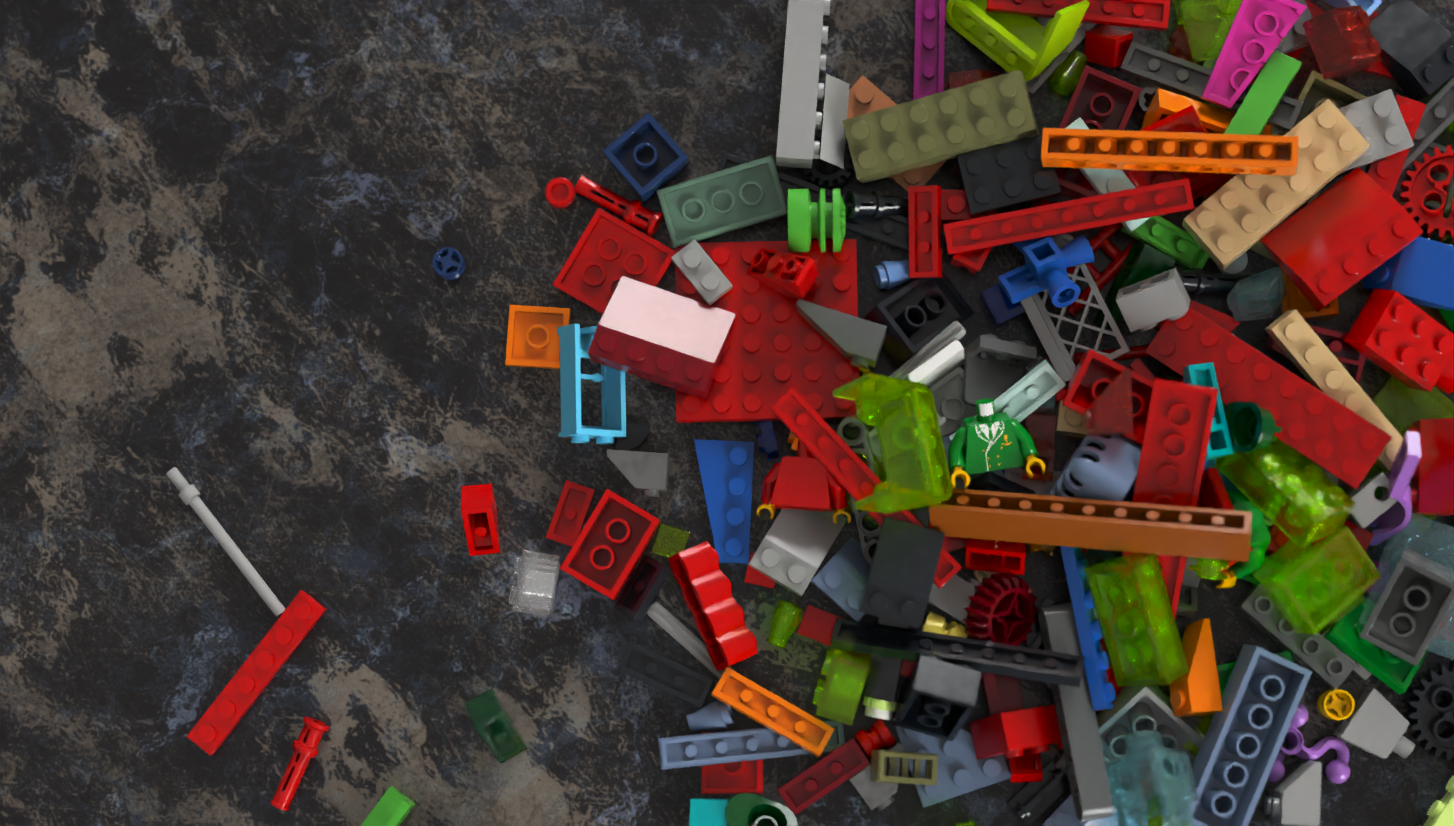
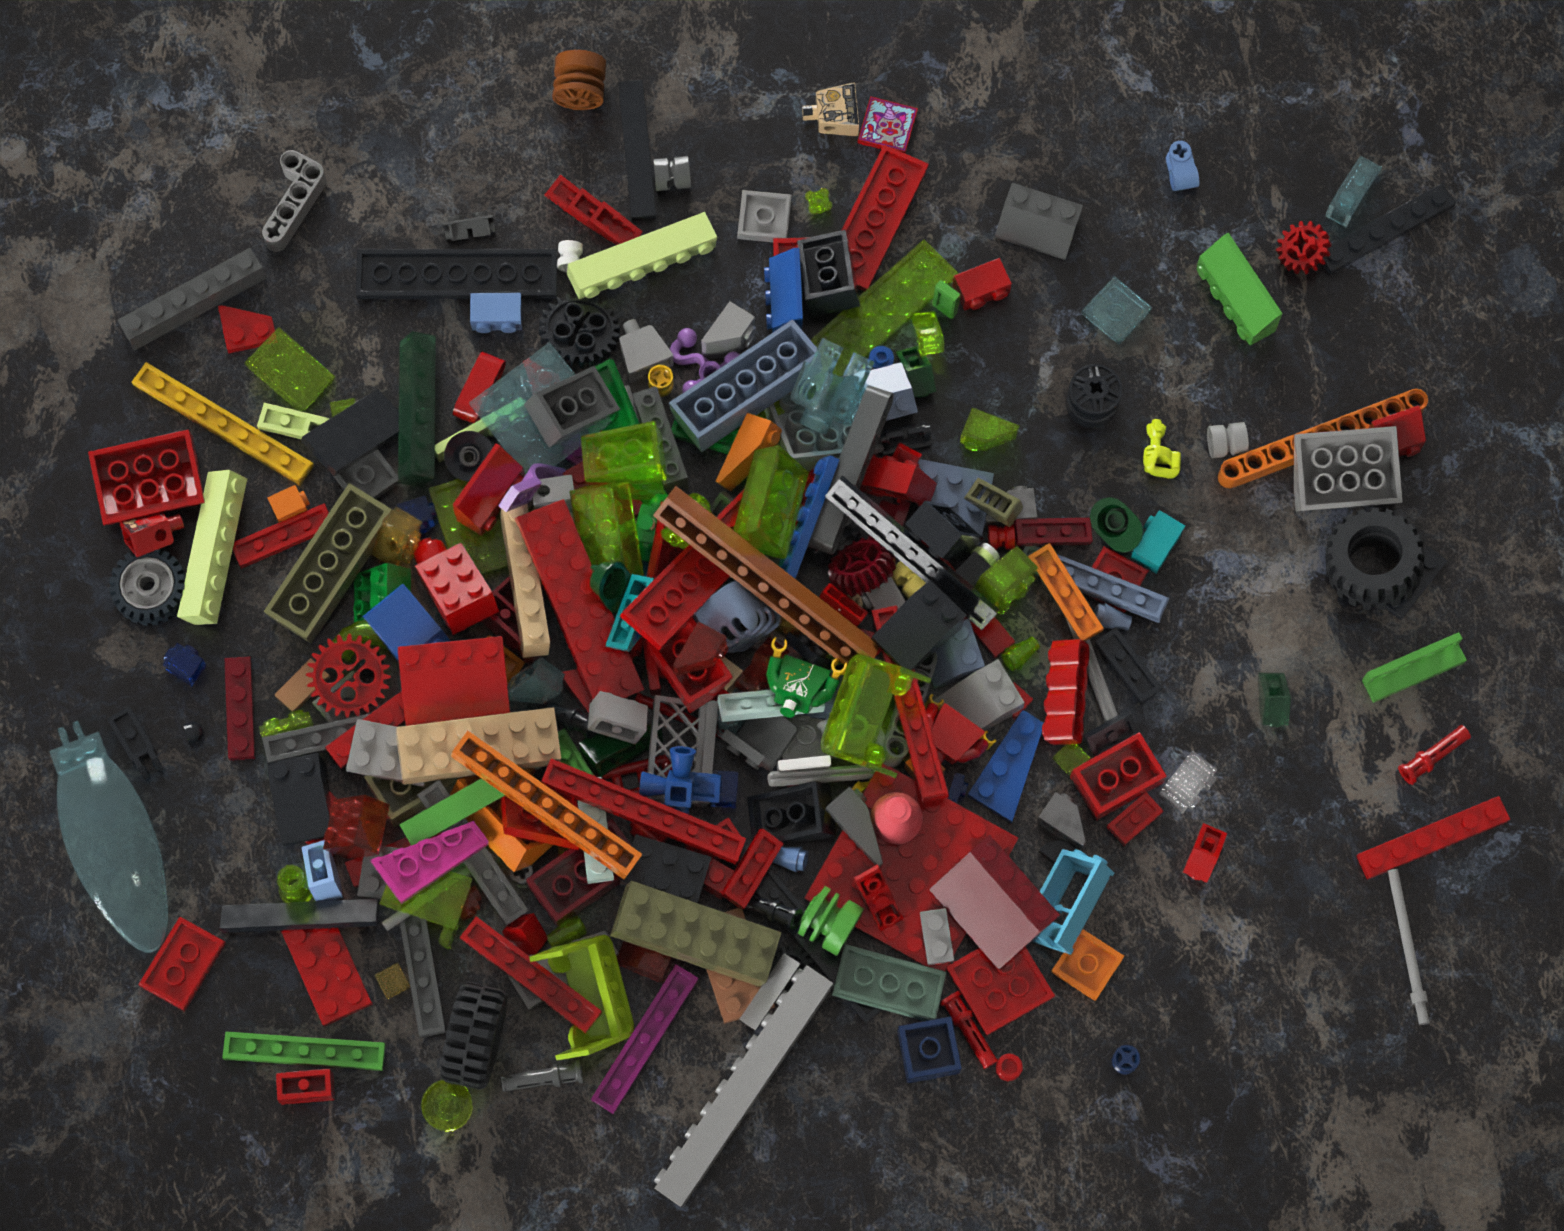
camera: 160 degrees left, 10 degrees down
(810, 365) = (896, 818): none -> coral cone

